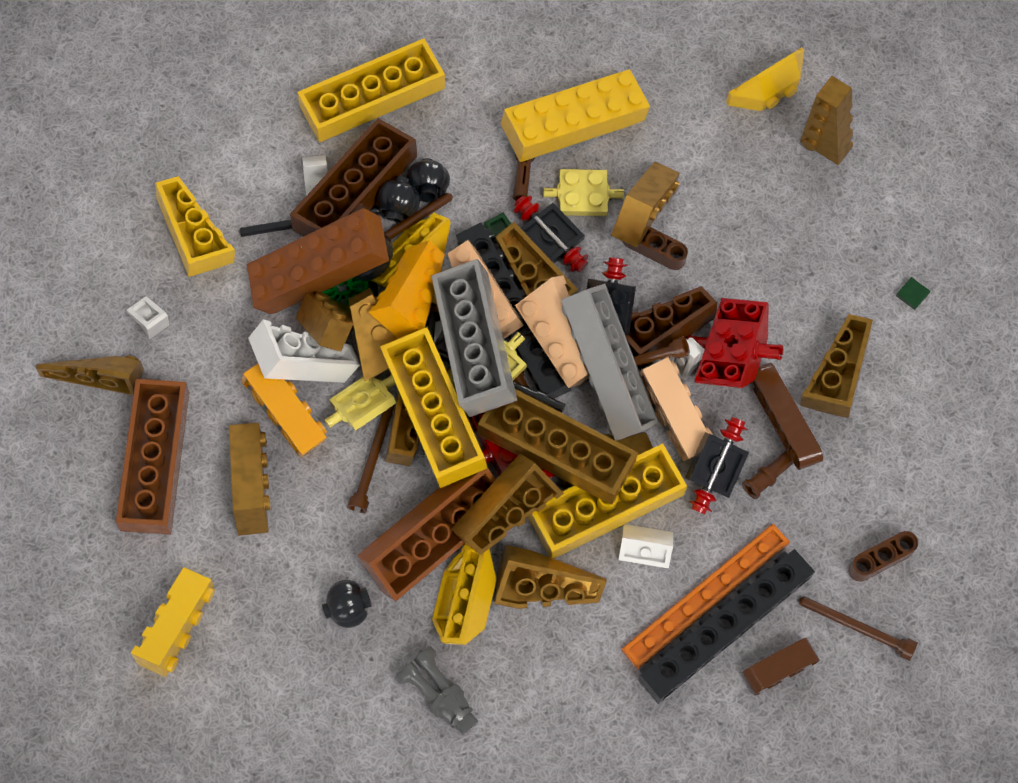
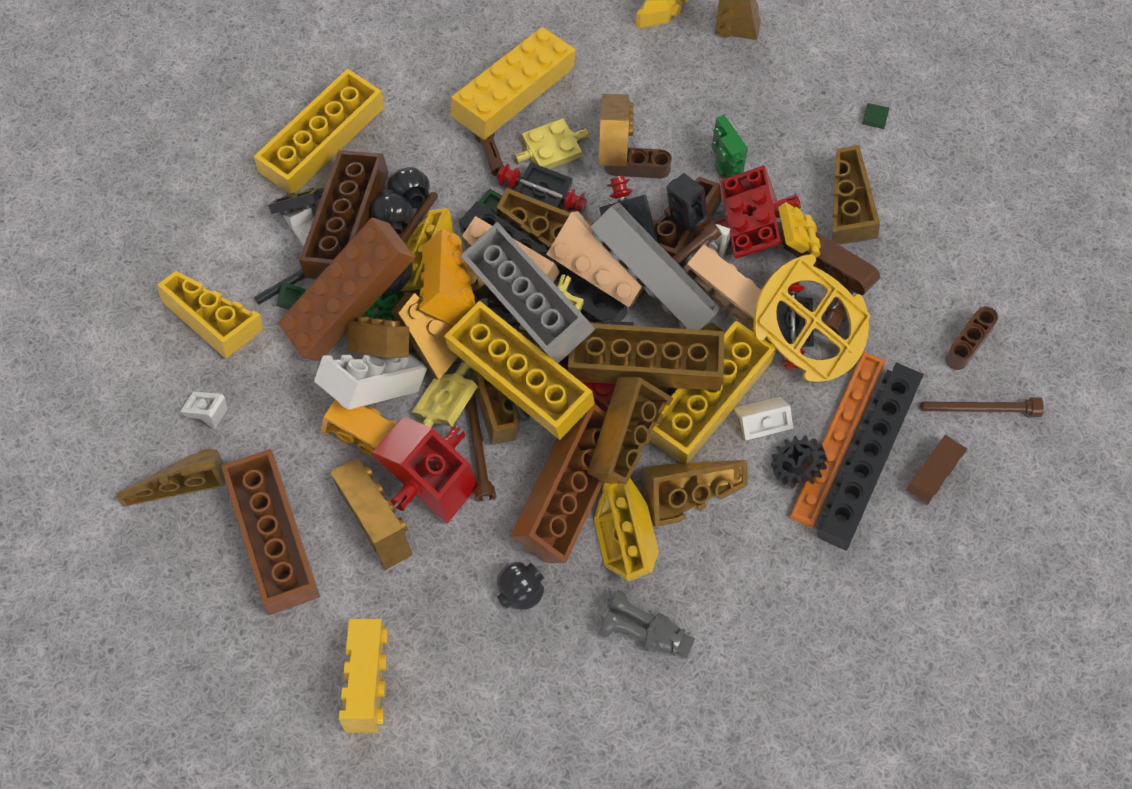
camera: 20 degrees left, 5 degrees down
(271, 240) = (289, 295): none -> dark green tile
(309, 436) = (410, 450): none -> red slope
(317, 150) = (304, 200): none -> black plate
(655, 602) = (799, 461): none -> black gear
(670, 310) = (687, 202): none -> black brick
(711, 432) = (766, 323): none -> yellow window
(746, 272) = (729, 148): none -> green plate
(762, 377) = (799, 230): none -> yellow plate

